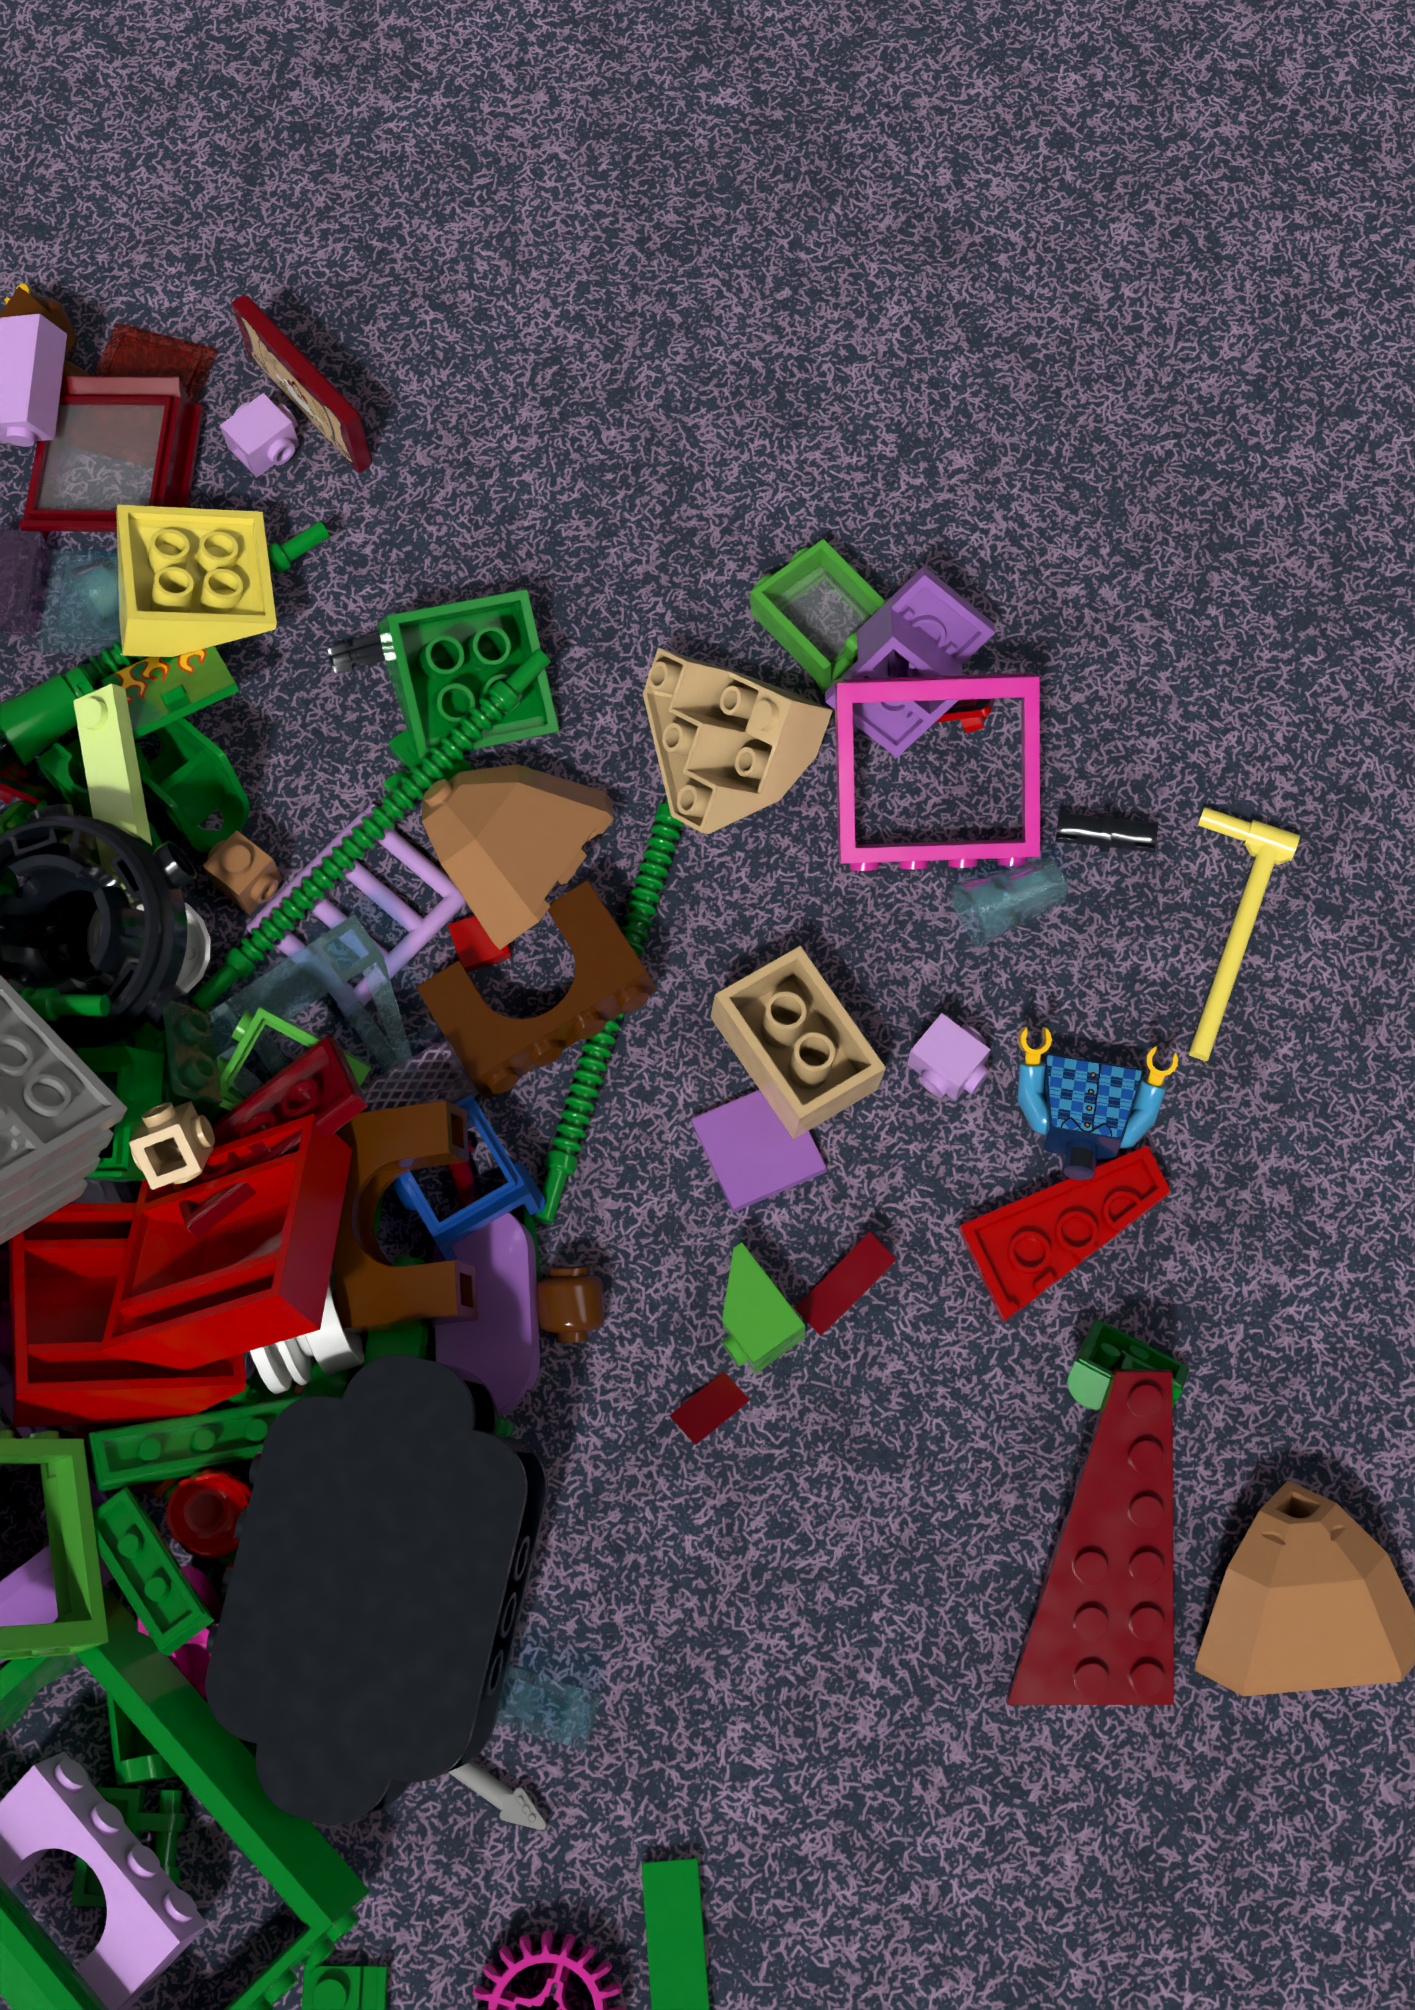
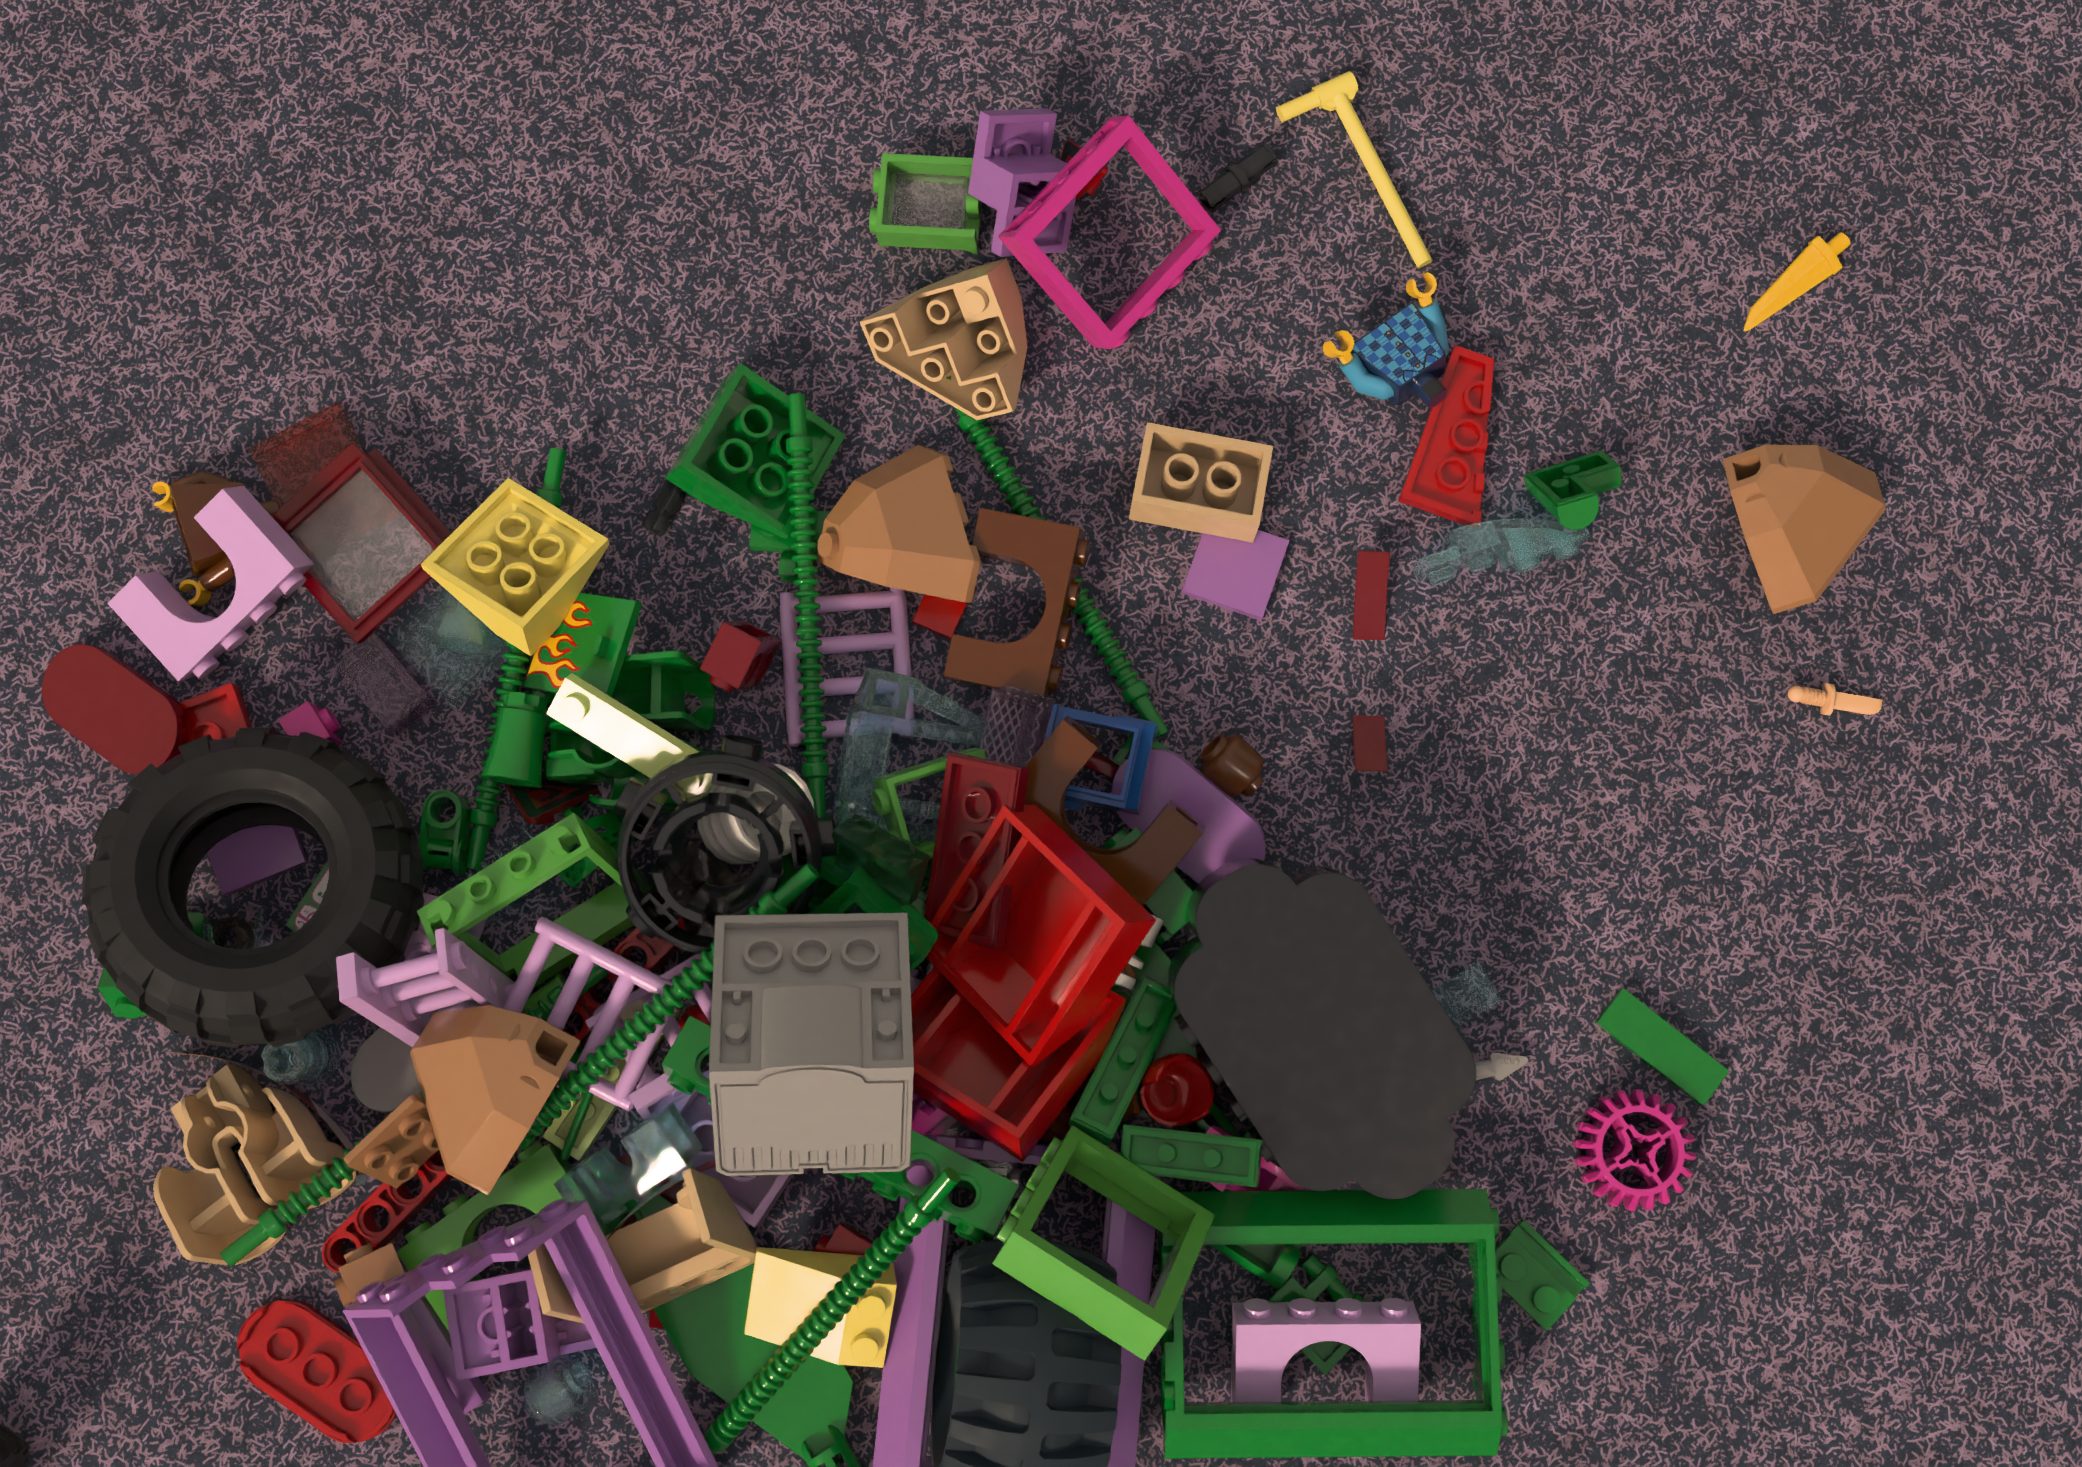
camera: 50 degrees left, 10 degrees up
(172, 1144) = (935, 910): tan brick -> none
(242, 872) = (754, 713): medium nougat brick -> none
(261, 434) = (439, 429): lavender brick -> none
(278, 812) = (739, 655): none -> dark red brick
(302, 383) = (433, 368): dark red tile -> none
(756, 1315) = (1341, 663): bright green slope -> none
(950, 1058) = (1293, 404): lavender brick -> none
(1007, 899) = (1226, 276): clear light blue plant -> none
(1023, 1367) = (1514, 542): none -> clear light blue slope
(1109, 1586) = (1682, 603): dark red wing -> none
(1174, 1811) = (1830, 699): none -> light nougat piece

